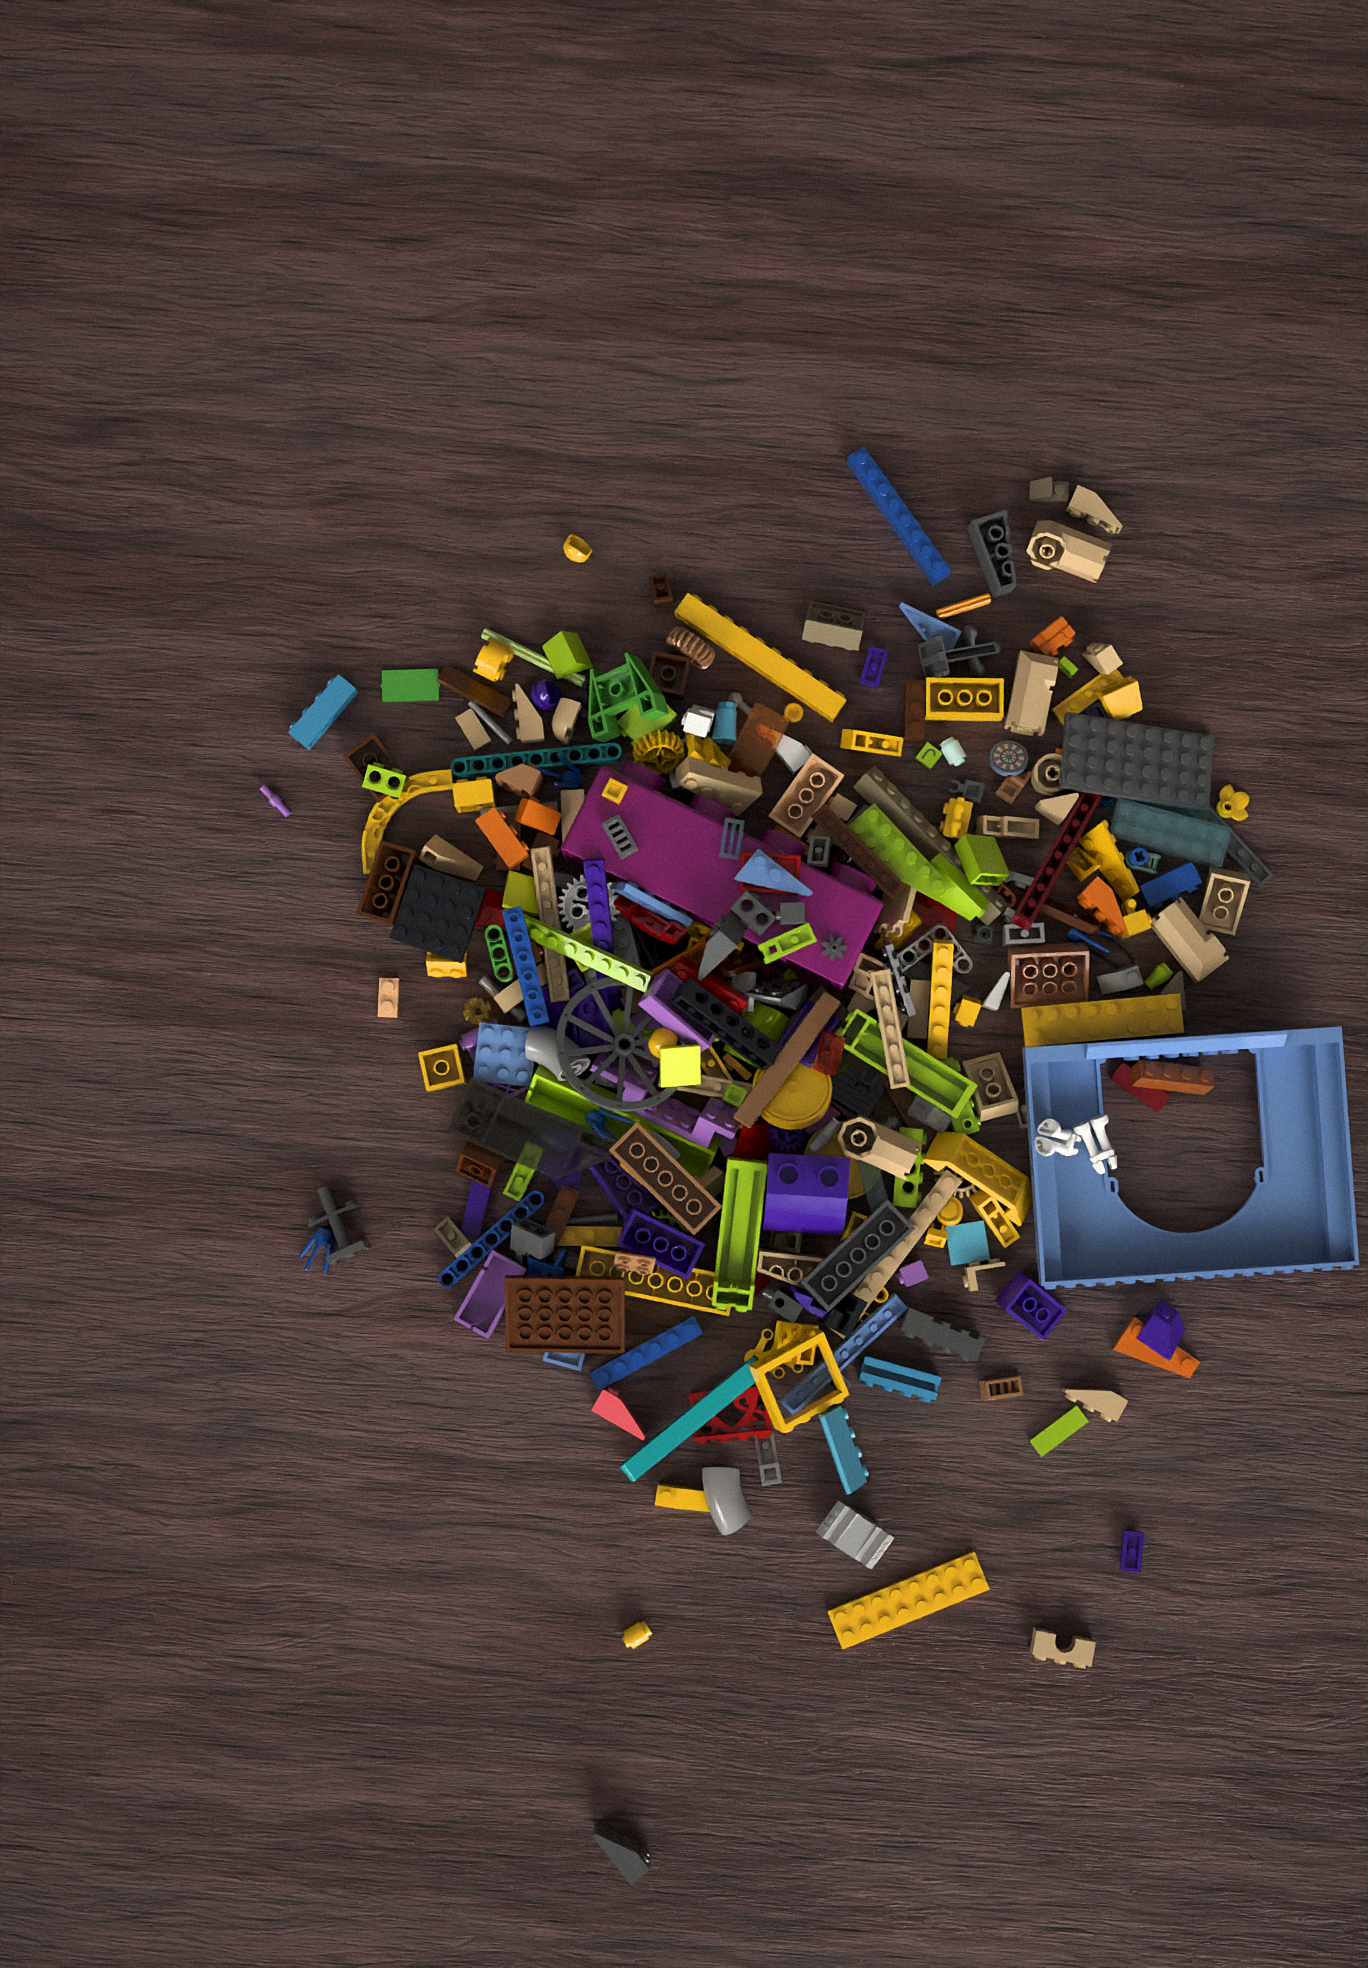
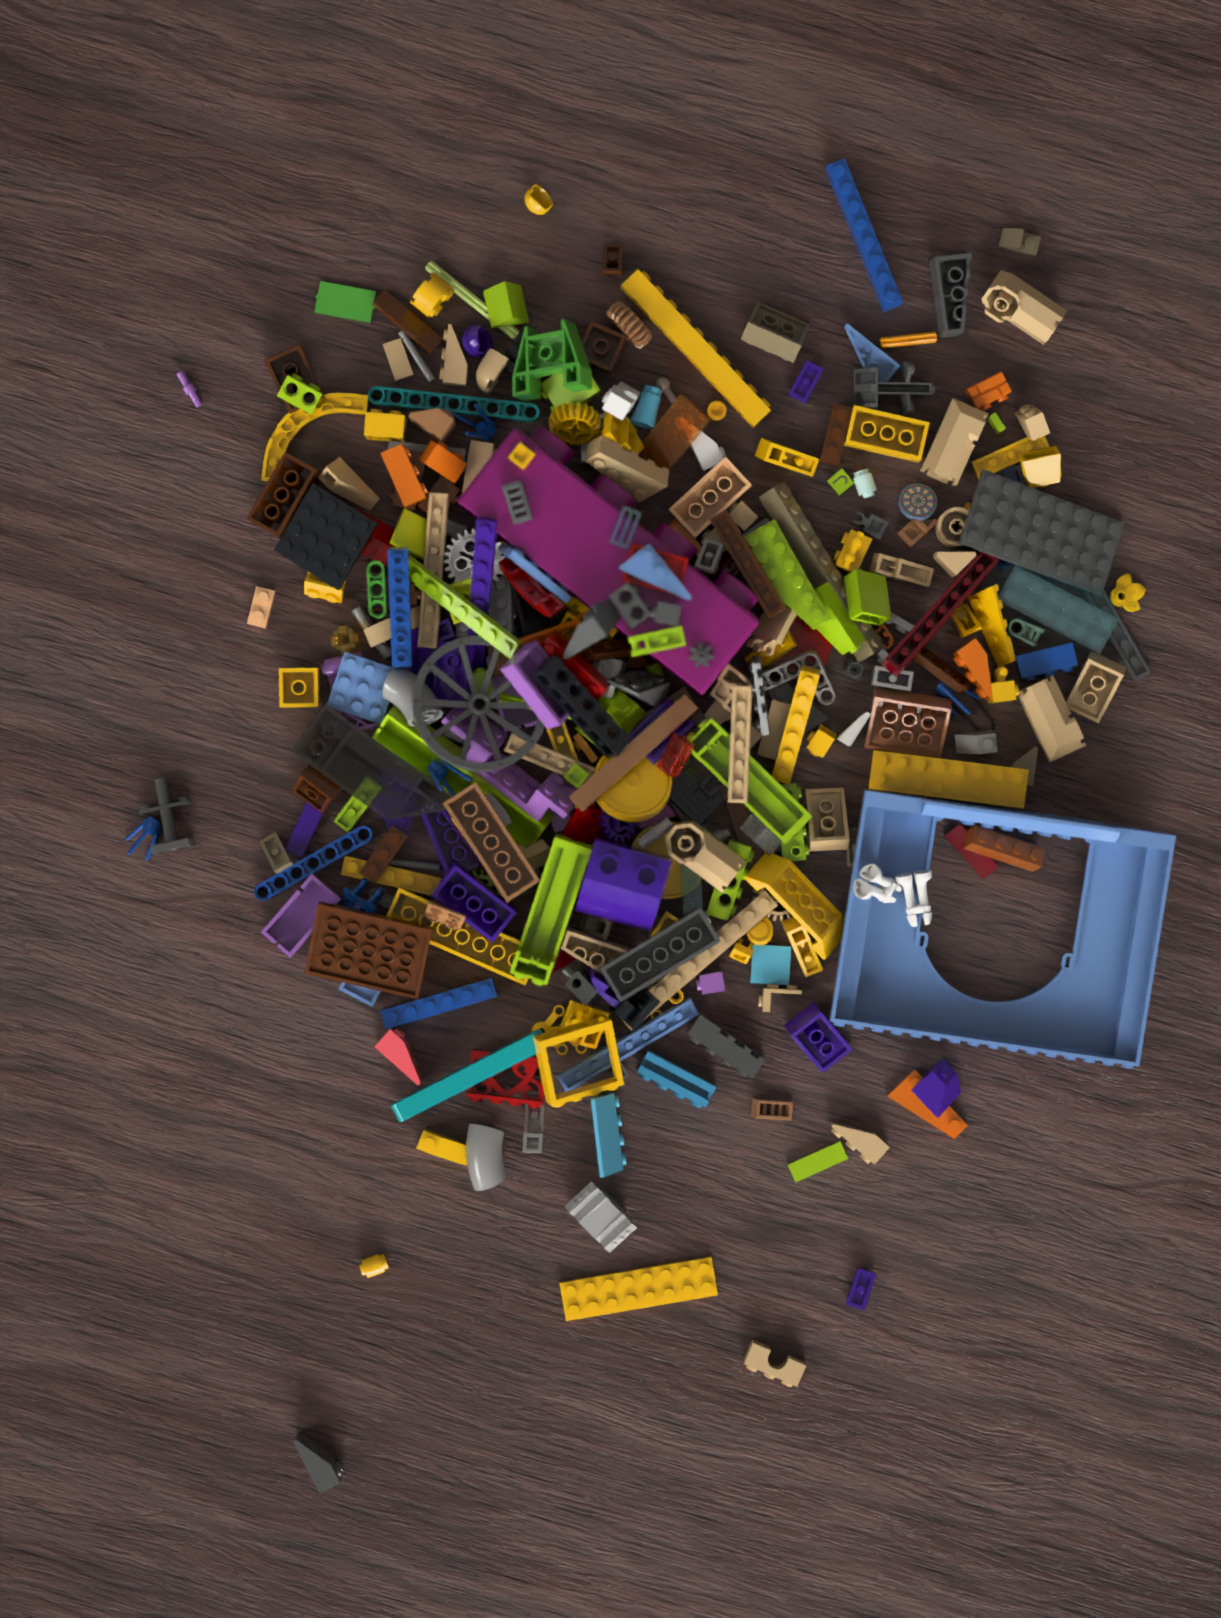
camera: 15 degrees right, 5 degrees up
(323, 711) = (254, 310): dark azure brick -> none
(531, 1239) = (350, 872): dark grey hinge -> none
(661, 1038) = (516, 712): yellow hair -> none
(679, 1065) = (528, 737): neon yellow tile -> none
(1091, 508) = (1056, 267): tan slope -> none
(1132, 858) = (1027, 626): blue bush -> none
(1159, 976) = (1015, 747): lime cone -> none

